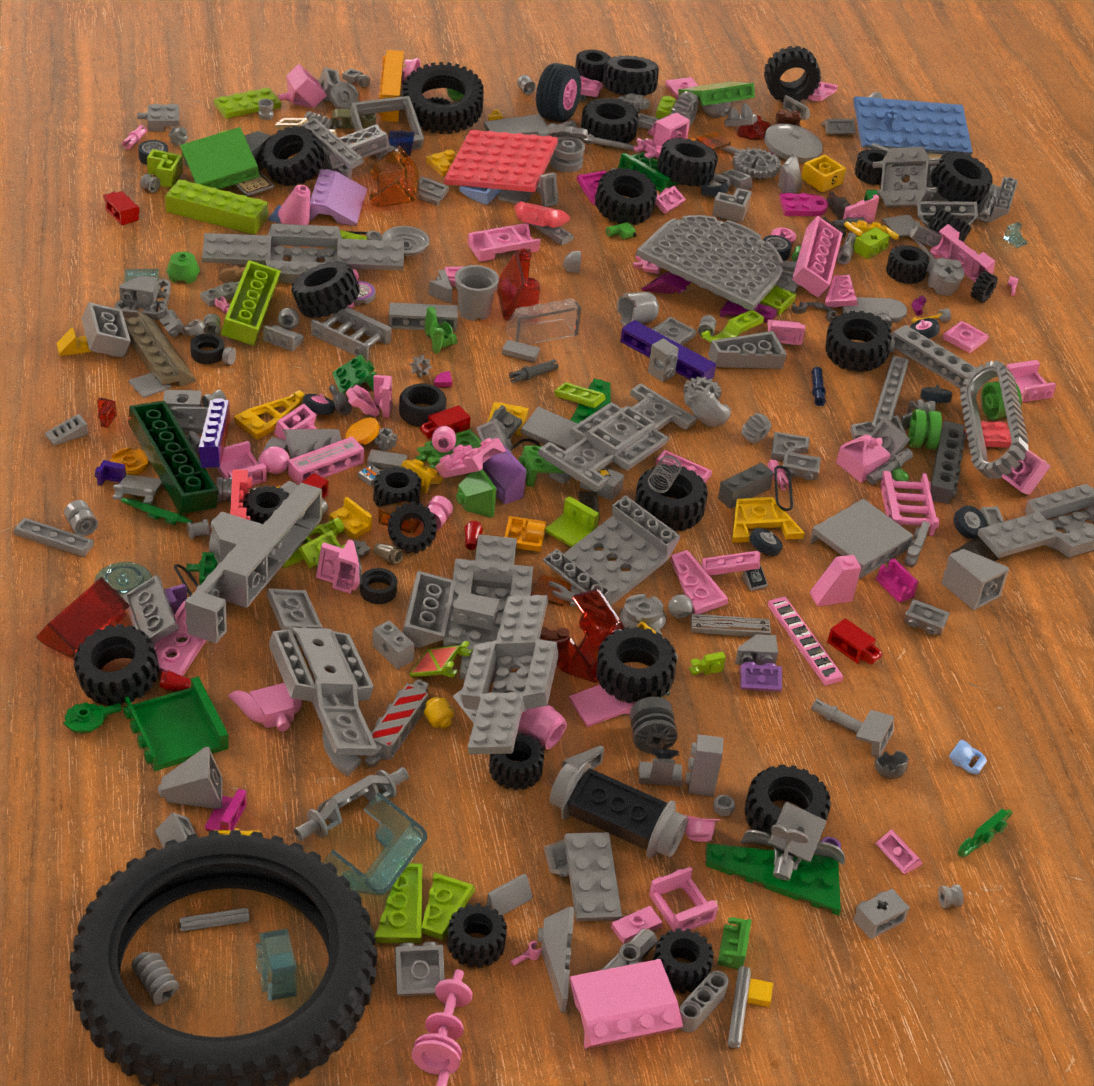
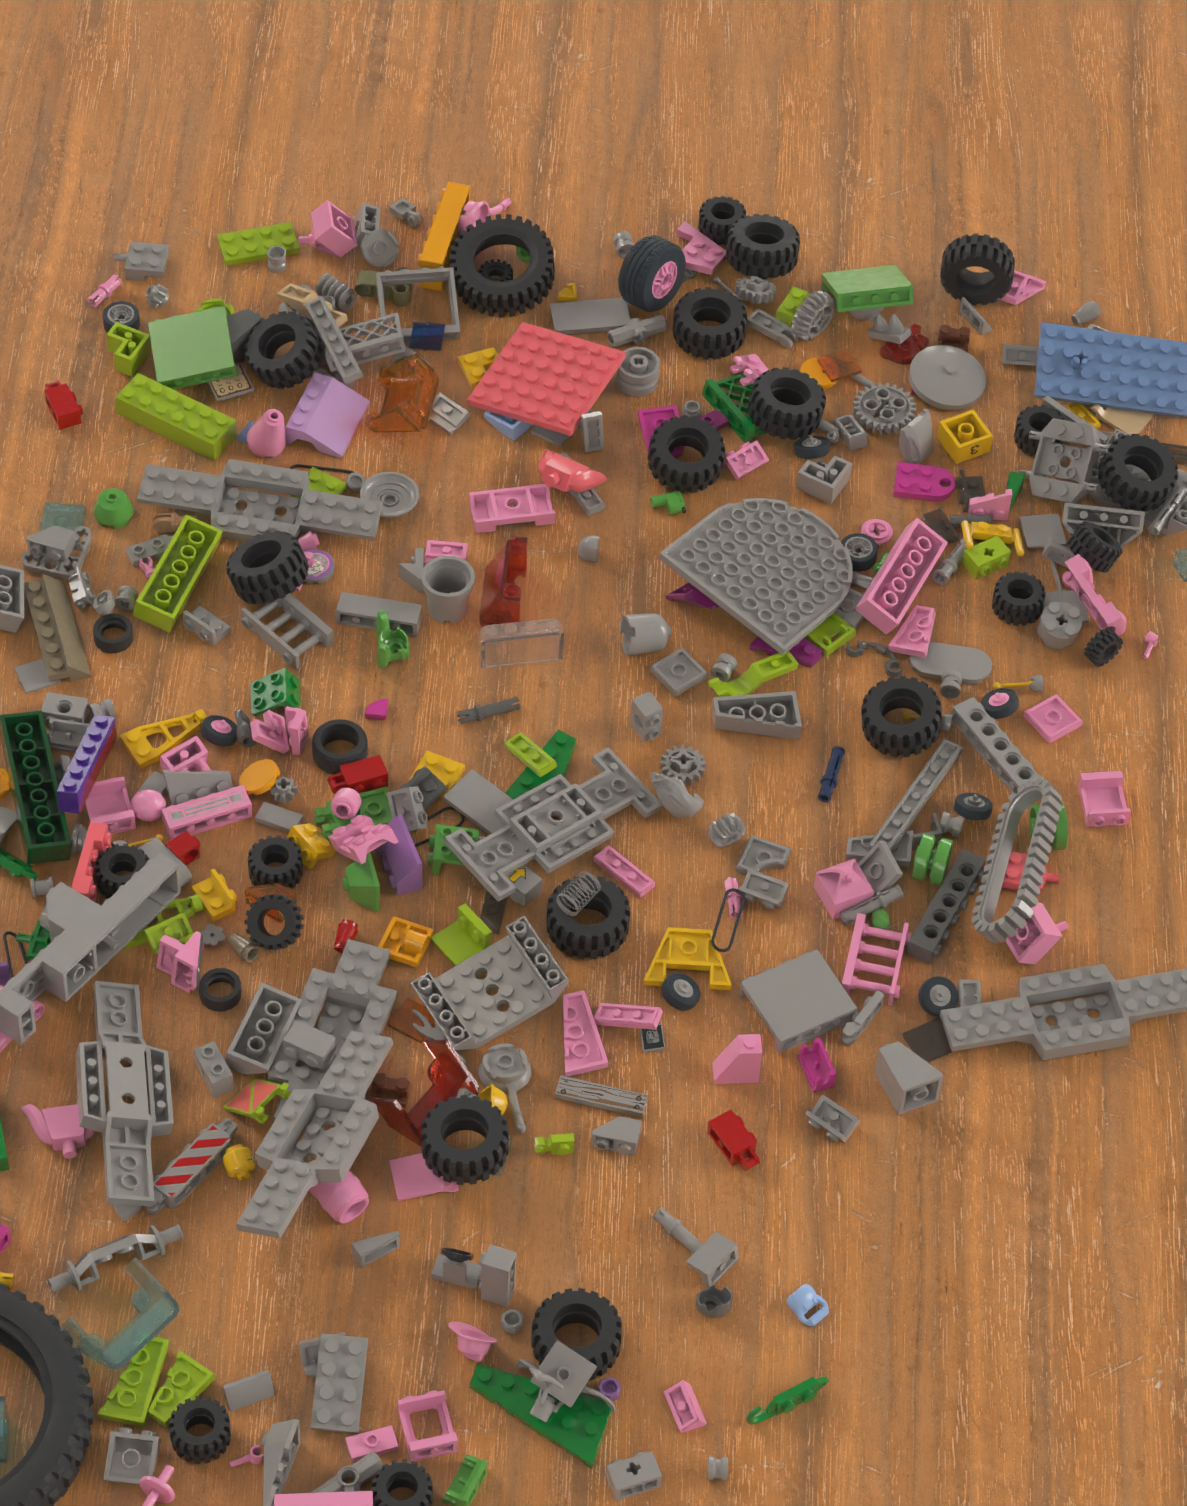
camera: 15 degrees right, 10 degrees up
(150, 183) = (105, 369): light grey wheel -> none
(229, 355) = (135, 647): light grey tile -> none
(288, 318) = (217, 600): light grey piece -> none
(368, 474) = (253, 834): tile -> none
(419, 370) = (351, 684): light grey gear -> none
(441, 508) = (312, 901): bright pink wheel -> none
(521, 350) = (484, 677): light grey tile -> none
(522, 773) = (309, 1249): black tyre -> none
(582, 134) = (674, 350): light grey piece -> none
(618, 809) = (387, 1313): black brick -> none
(653, 724) = (463, 1214): dark grey wheel -> none
(669, 127) = (784, 347): bright pink piece -> none
(675, 84) = (833, 261): bright pink plate -> none
(680, 606) = (549, 1064): light grey piece -> none
(688, 363) = (677, 717): dark purple brick -> none
(745, 484) = (685, 909): dark grey brick -> none
(760, 677) = (609, 1170): medium lavender bracket -> none
(787, 331) = (820, 685): bright pink bracket -> none
(805, 641) = (680, 1128): tile -> none
(917, 305) = (1010, 661): magenta arm -> none

